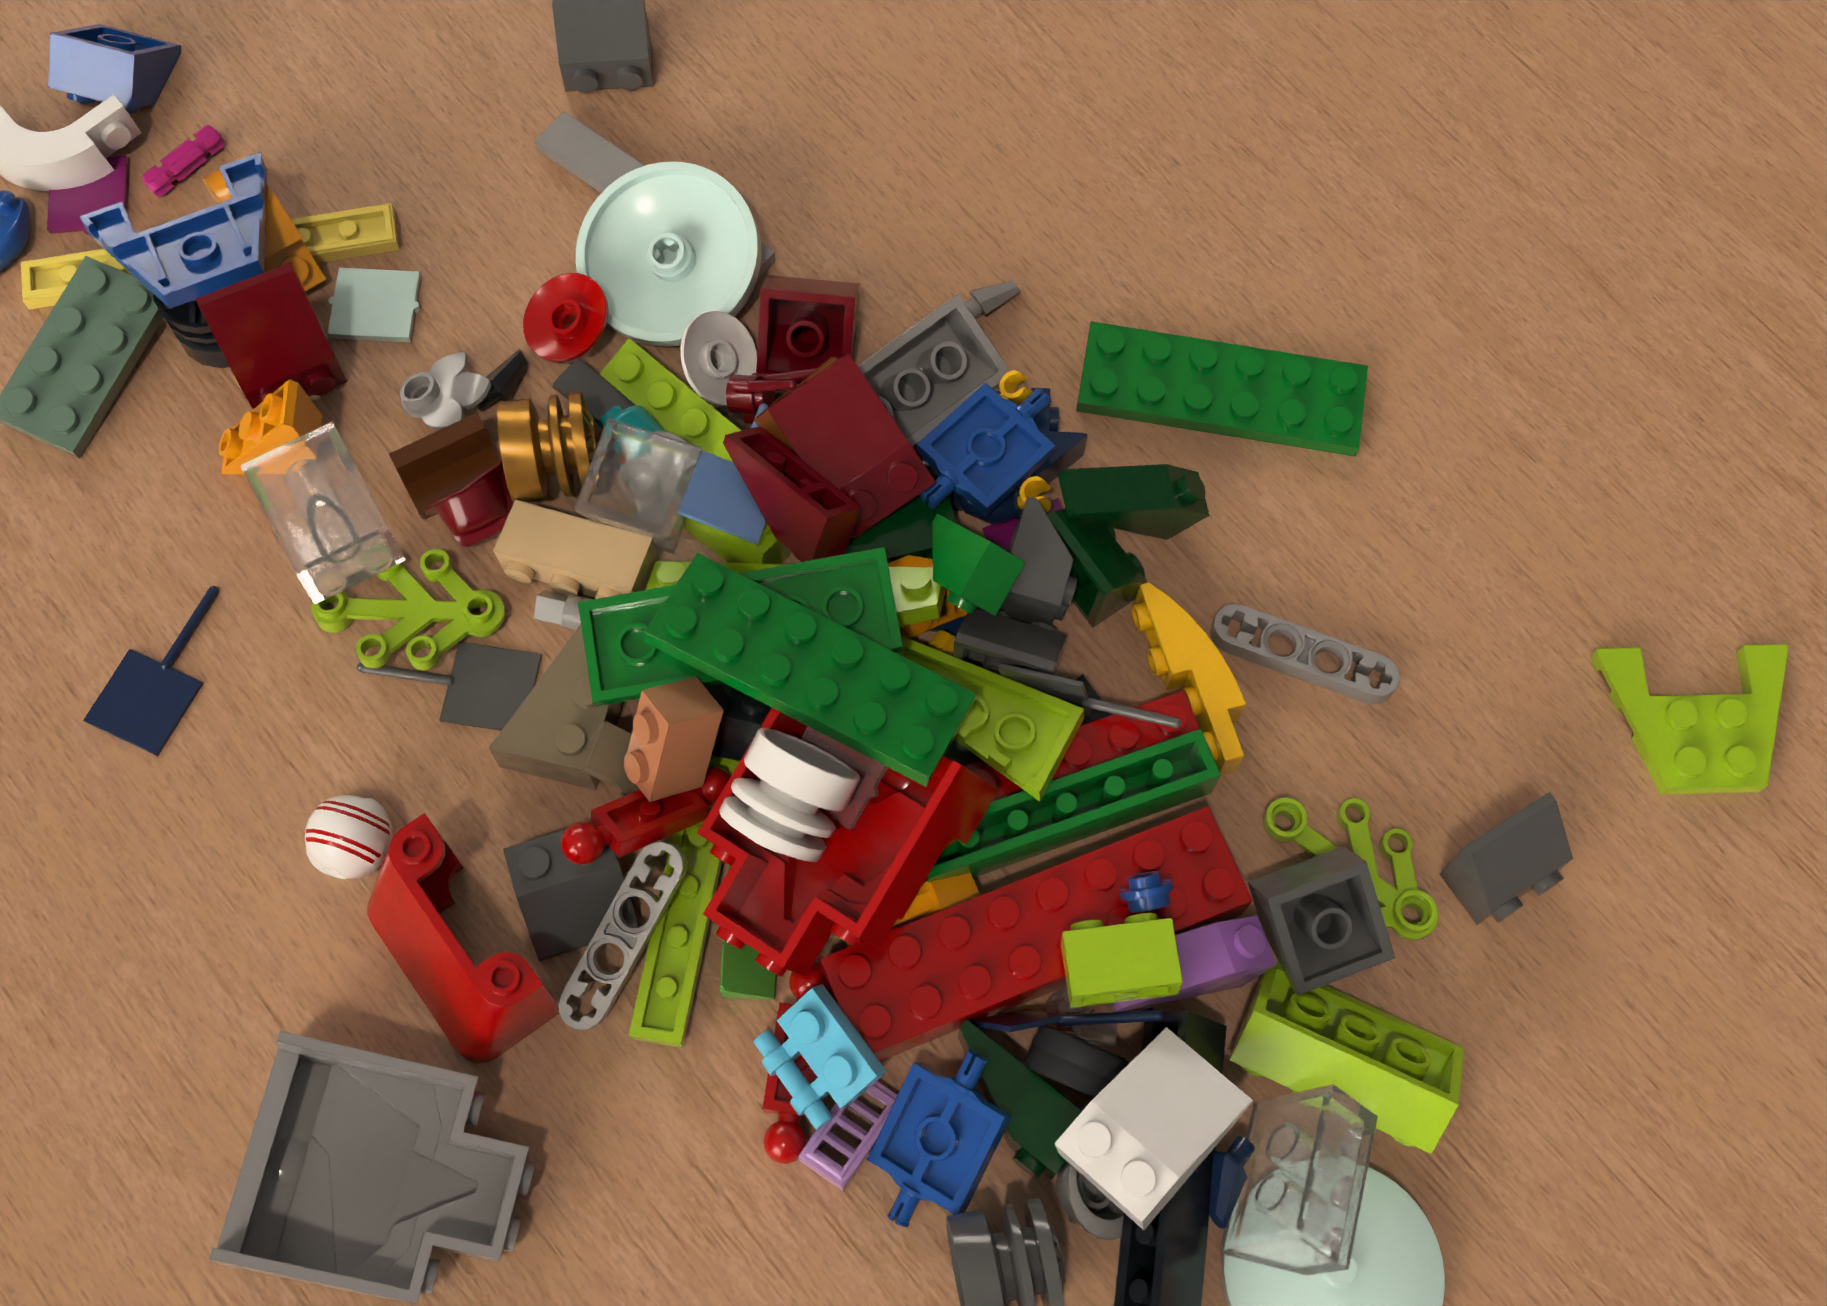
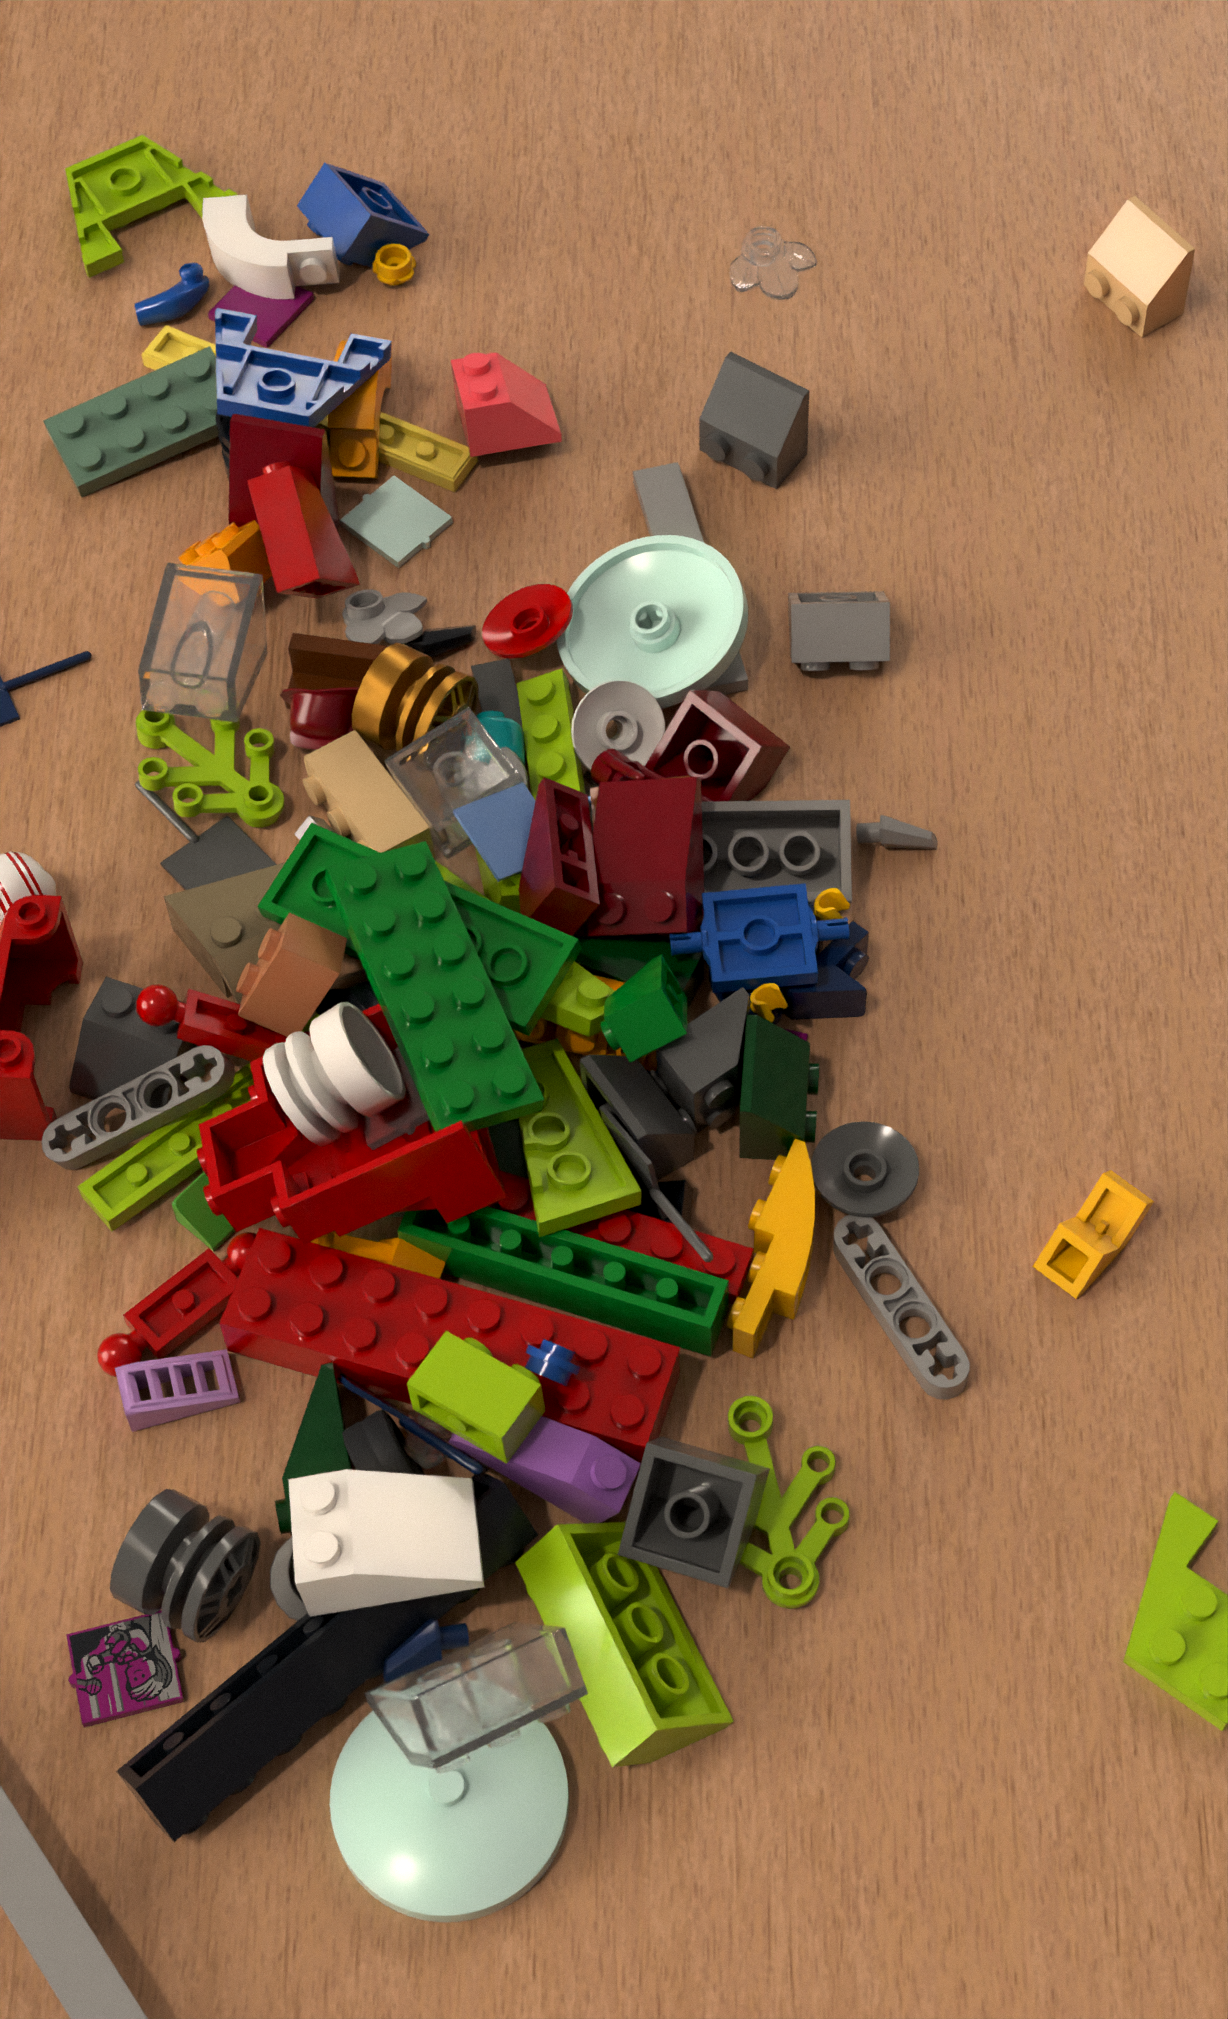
camera: 45 degrees right, 10 degrees down
(176, 88) = (394, 264): none -> yellow plate
(183, 160) = (350, 321): dark pink axle -> none
(326, 364) = (299, 533): none -> red slope
(382, 154) = (501, 405): none -> coral slope
(808, 165) = (839, 629): none -> light grey slope
(830, 1048) = (204, 1301): medium azure plate -> none
(939, 1138) = (230, 1436): blue plate -> none
(1135, 499) = (852, 1064): dark green slope -> none
(1204, 553) = (869, 1151): none -> dark grey dish
(1223, 388) = (1040, 1044): green plate -> none
(1383, 504) = (1095, 1236): none -> yellow slope
(1510, 861) = (909, 1591): dark grey slope -> none

